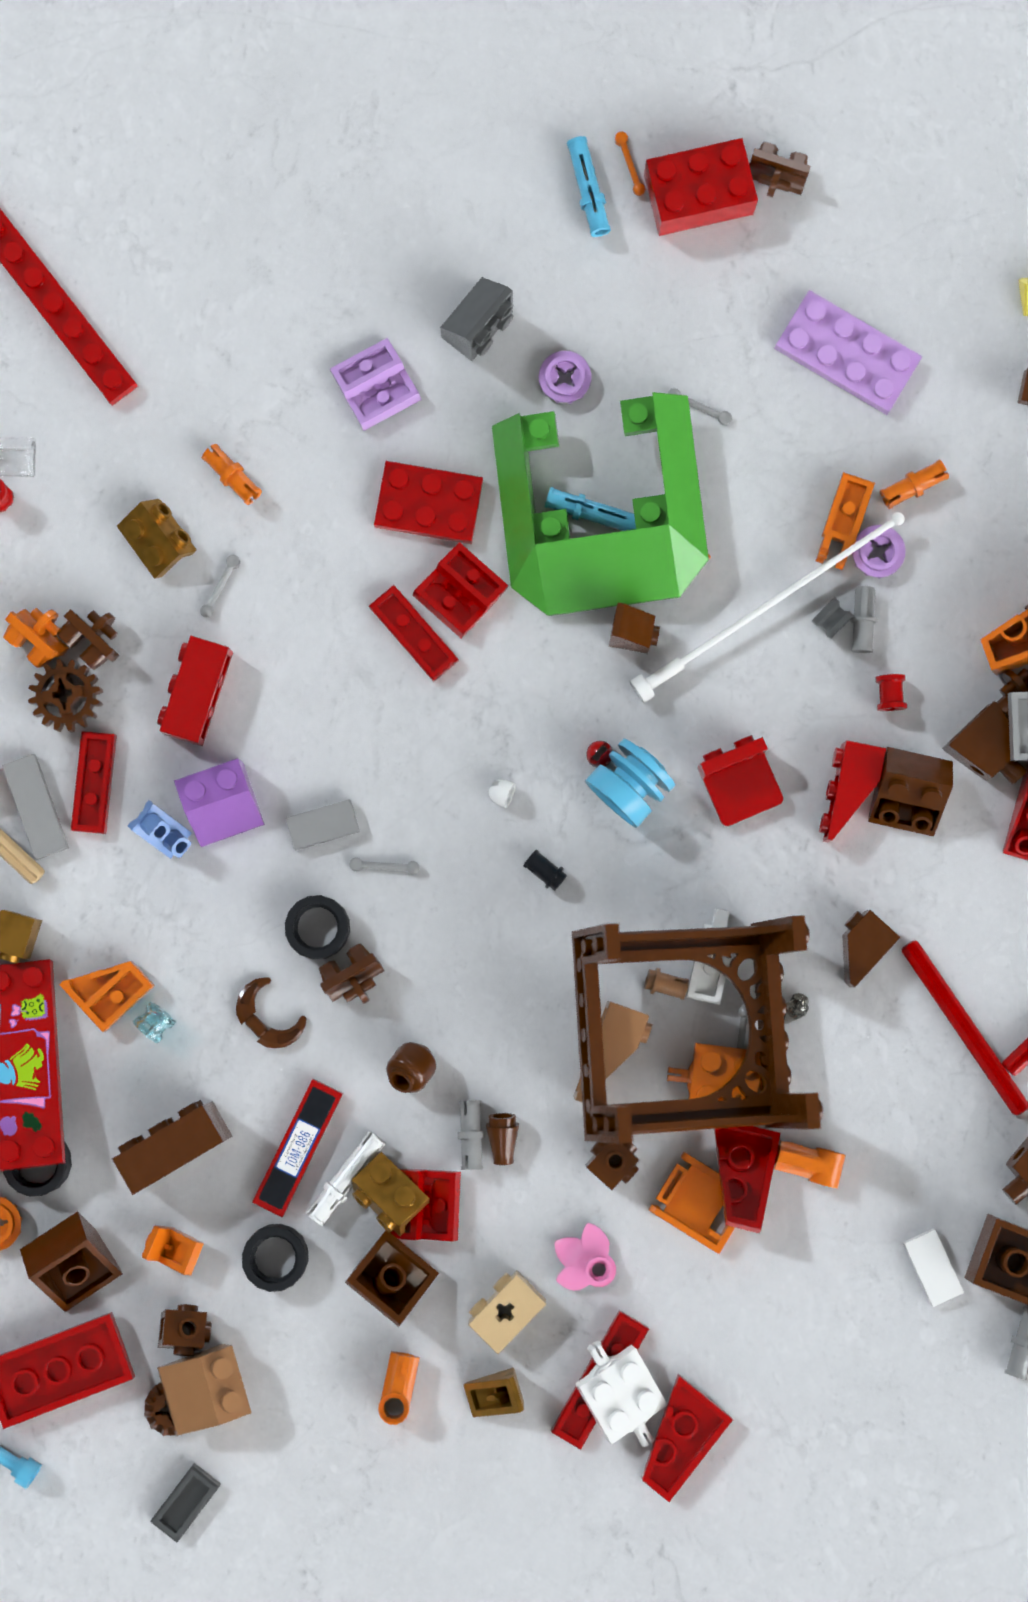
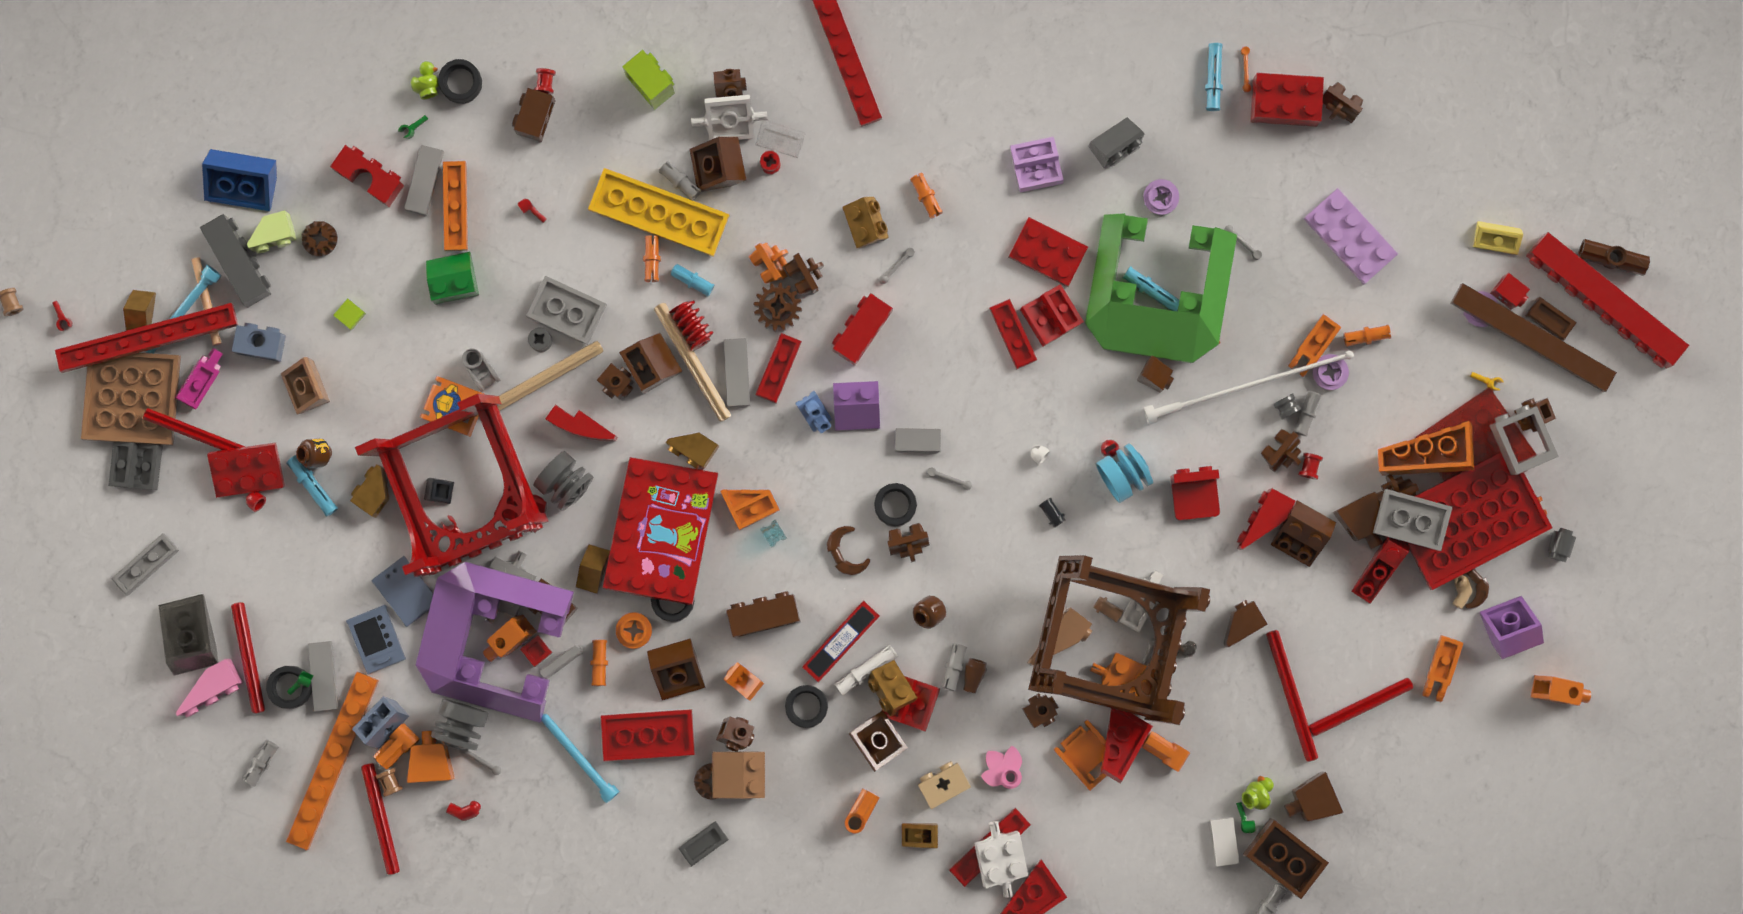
camera: 15 degrees right, 0 degrees up
(850, 669) = (1286, 453): none -> reddish brown hips
(958, 1185) = (1257, 793): none -> lime animal
(958, 1235) = (1246, 826): none -> green hand

